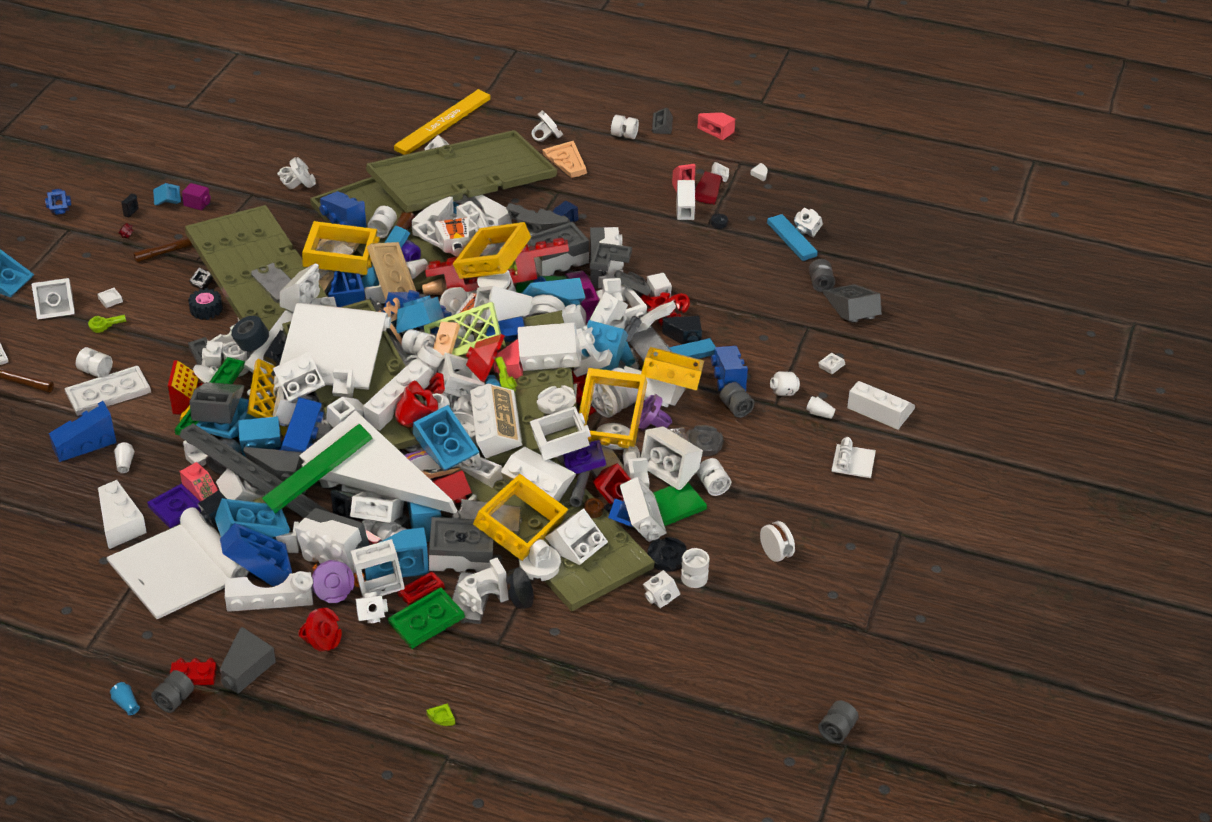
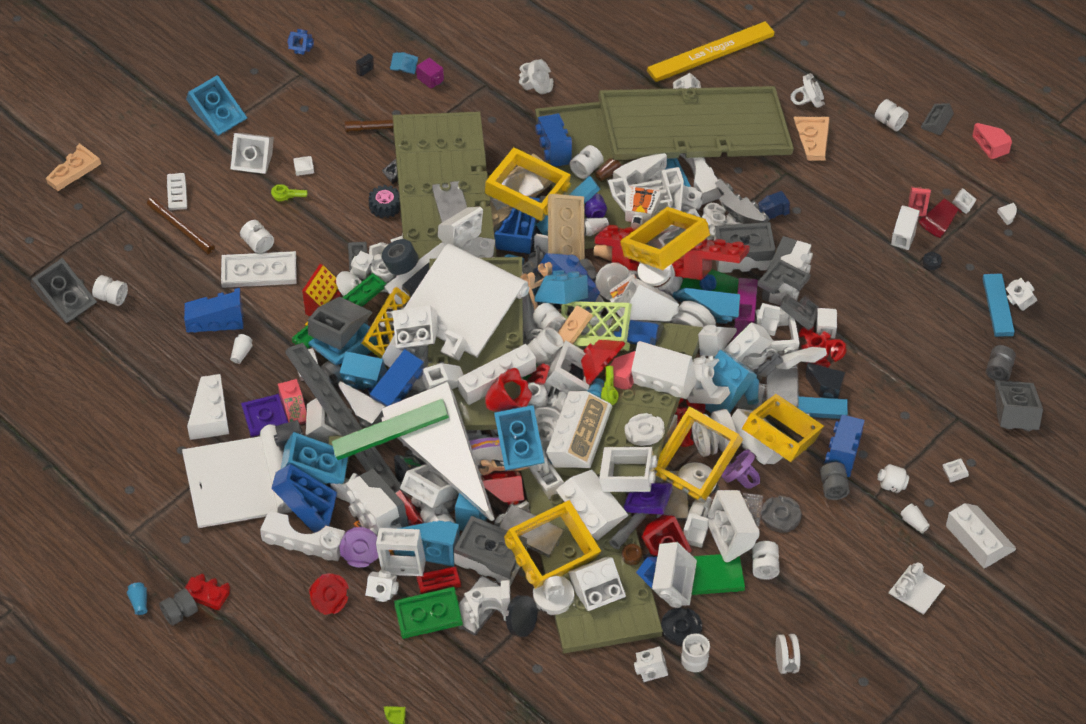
camera: 25 degrees right, 10 degrees up
(126, 230) = (349, 93): dark red plate -> none
(245, 660) = (251, 599): dark grey slope -> none

